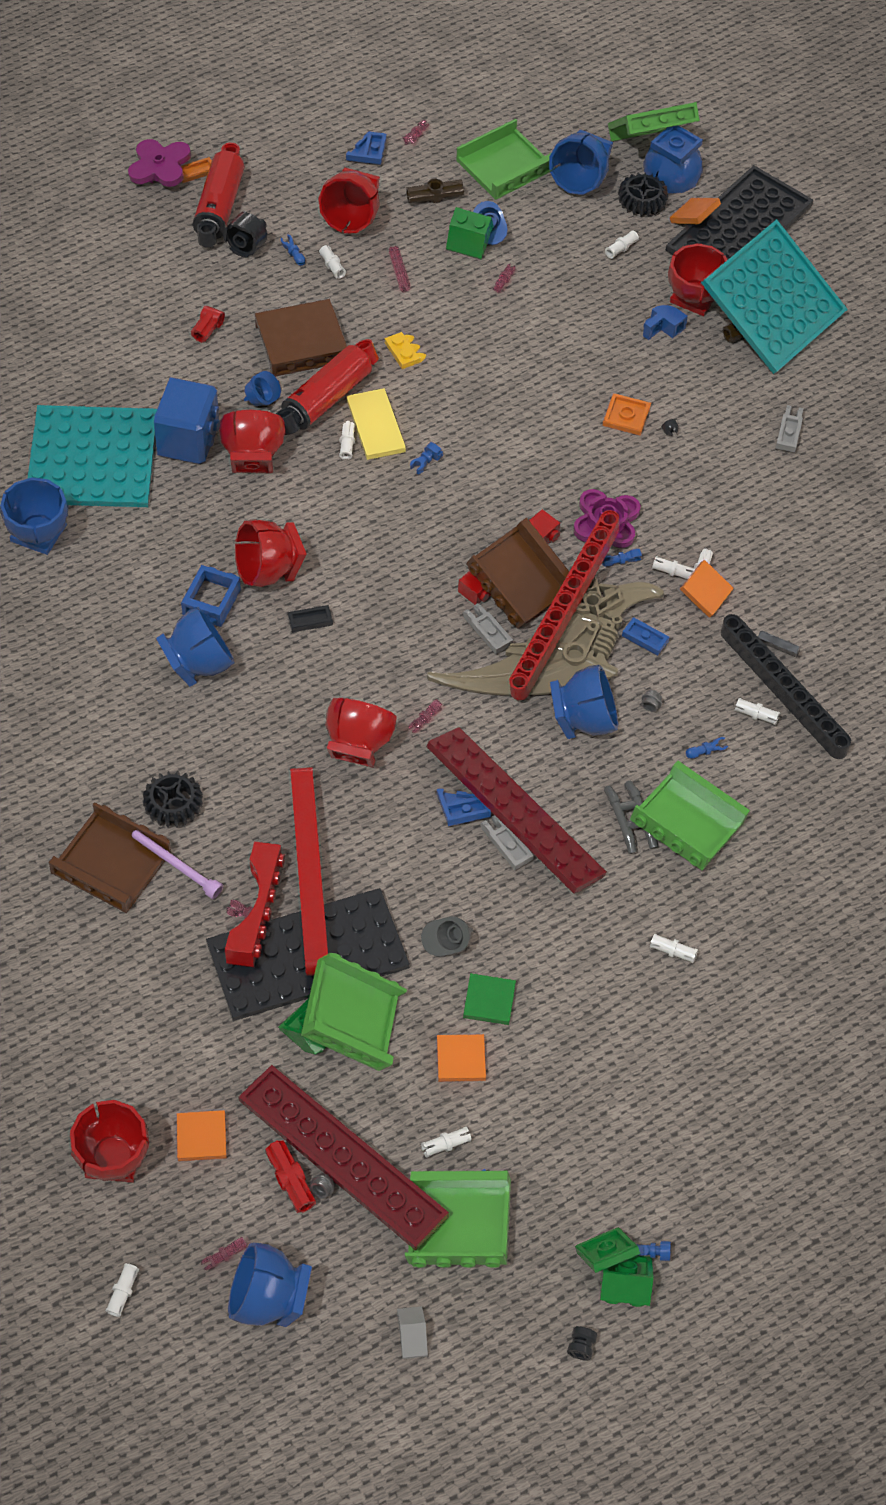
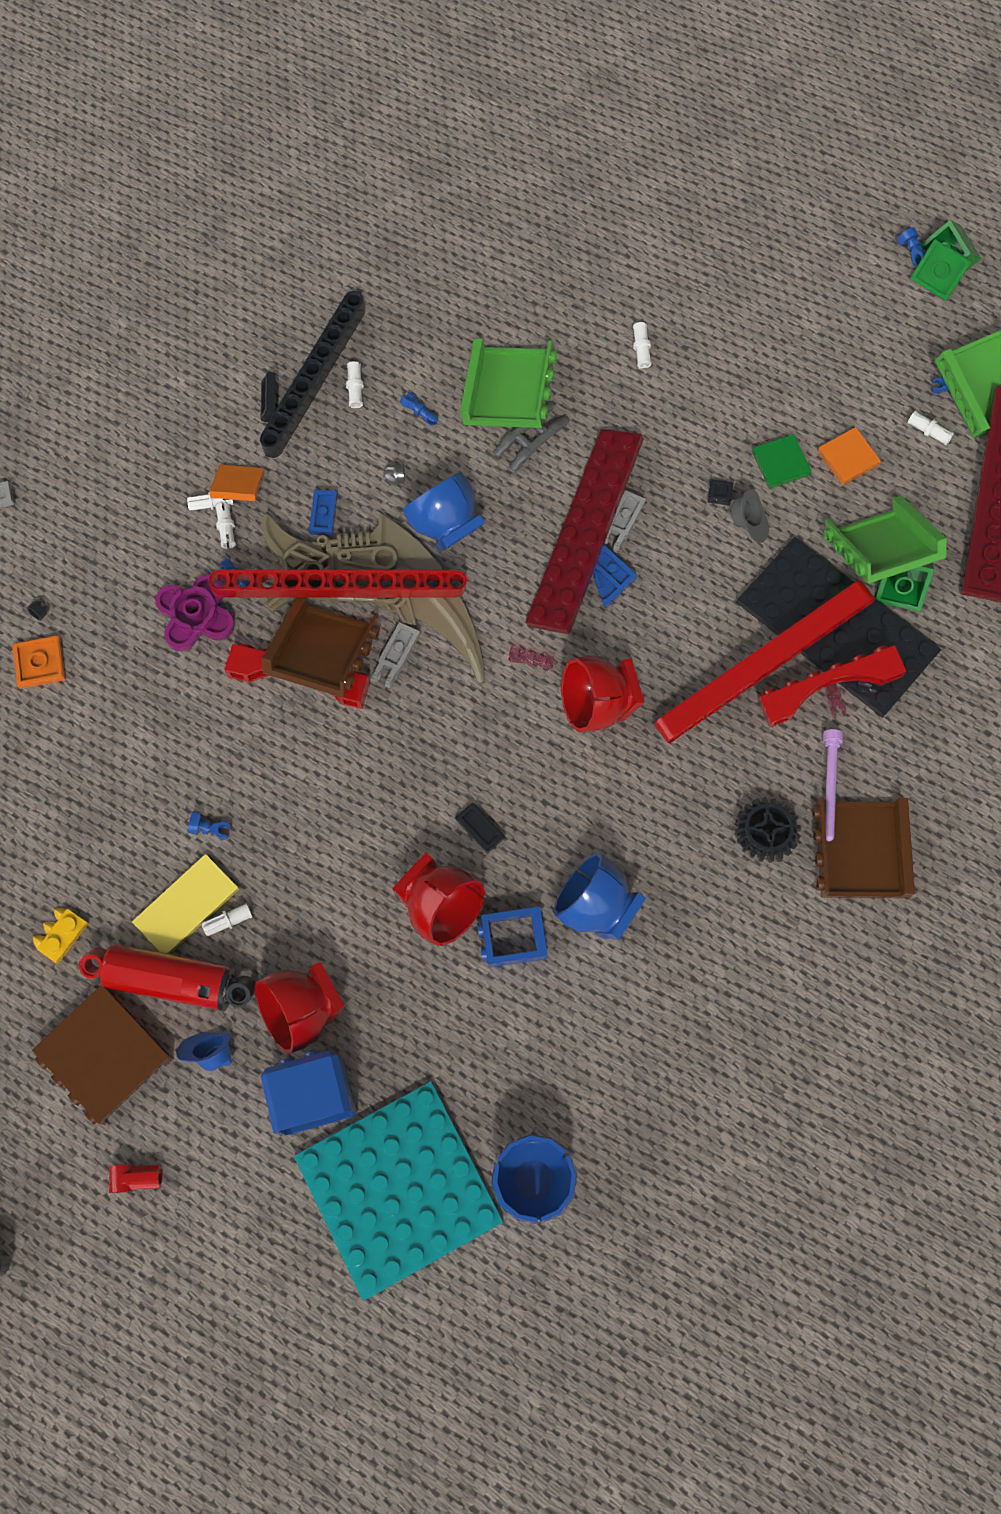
camera: 115 degrees left, 15 degrees up
(489, 934) = (720, 492): none -> black tile

